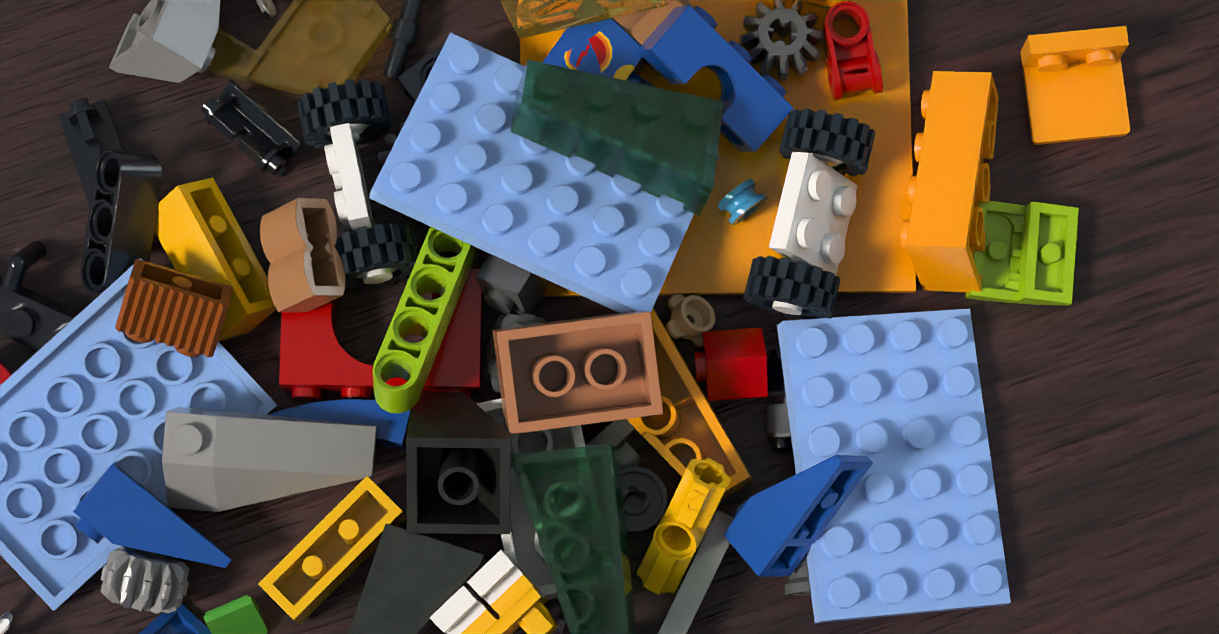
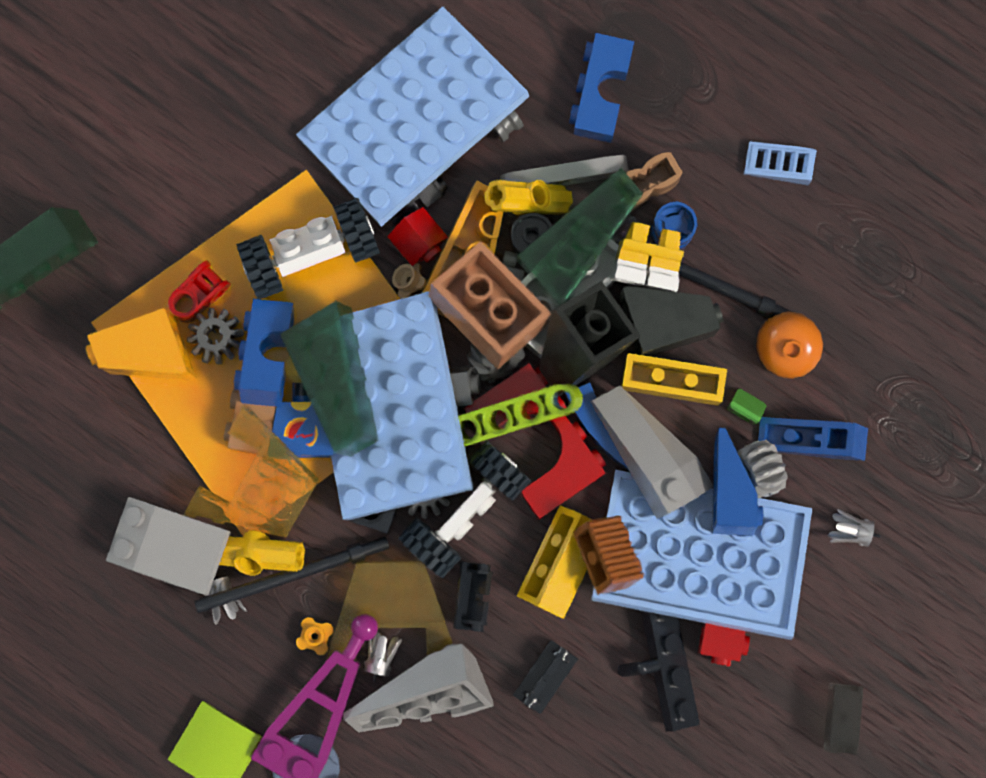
camera: 125 degrees left, 5 degrees up
(120, 216) = (576, 629): black beam -> none
(302, 255) = (528, 505): medium nougat brick -> none
(742, 202) = (324, 293): dark azure bush -> none
(784, 520) = (491, 145): blue slope -> none
(951, 180) = (230, 189): light orange wedge -> none
(1027, 253) = (244, 128): lime slope -> none
(1076, 85) = (130, 159): light orange bracket -> none

